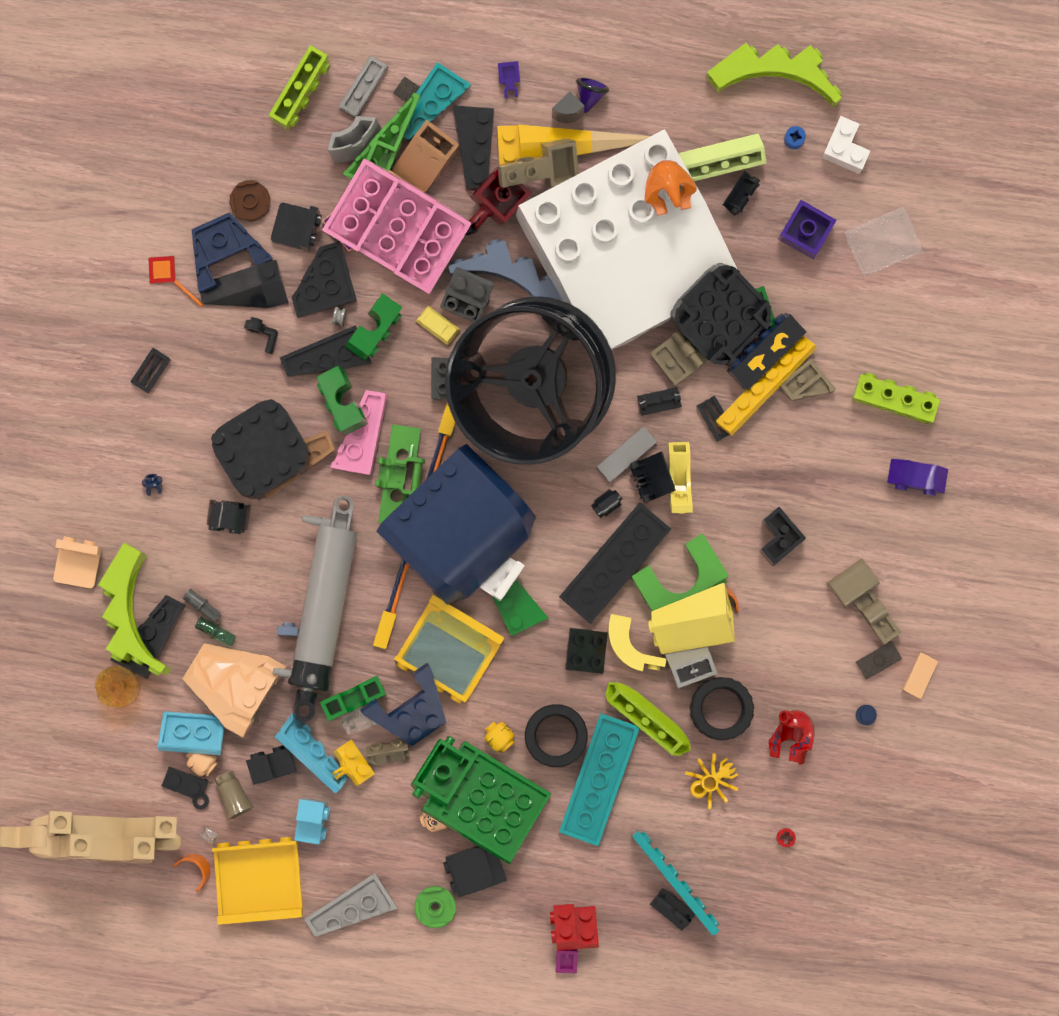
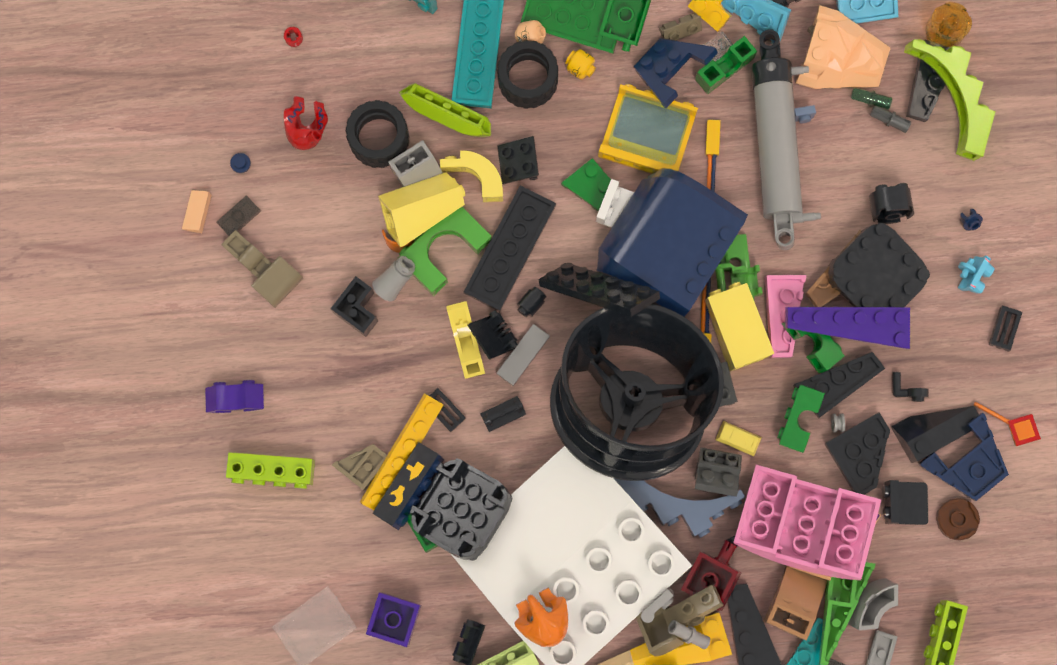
camera: 165 degrees right, 5 degrees down
(77, 562) = (1020, 130): light nougat bracket -> none
(167, 429) = (972, 273): none -> medium azure hips
(285, 399) = (868, 324): none -> dark purple wing
(412, 426) = (738, 326): none -> light yellow slope
(535, 148) = (688, 634): none -> light grey pin
(541, 489) = (599, 289): none -> black plate
(543, 778) = (530, 31): none -> light nougat head
(553, 180) = (663, 601): none -> light grey plate
(678, 358) = (495, 458): dark tan plate -> none
(710, 782) = (376, 67): yellow animal -> none
(738, 554) = (394, 278): none -> light grey plant

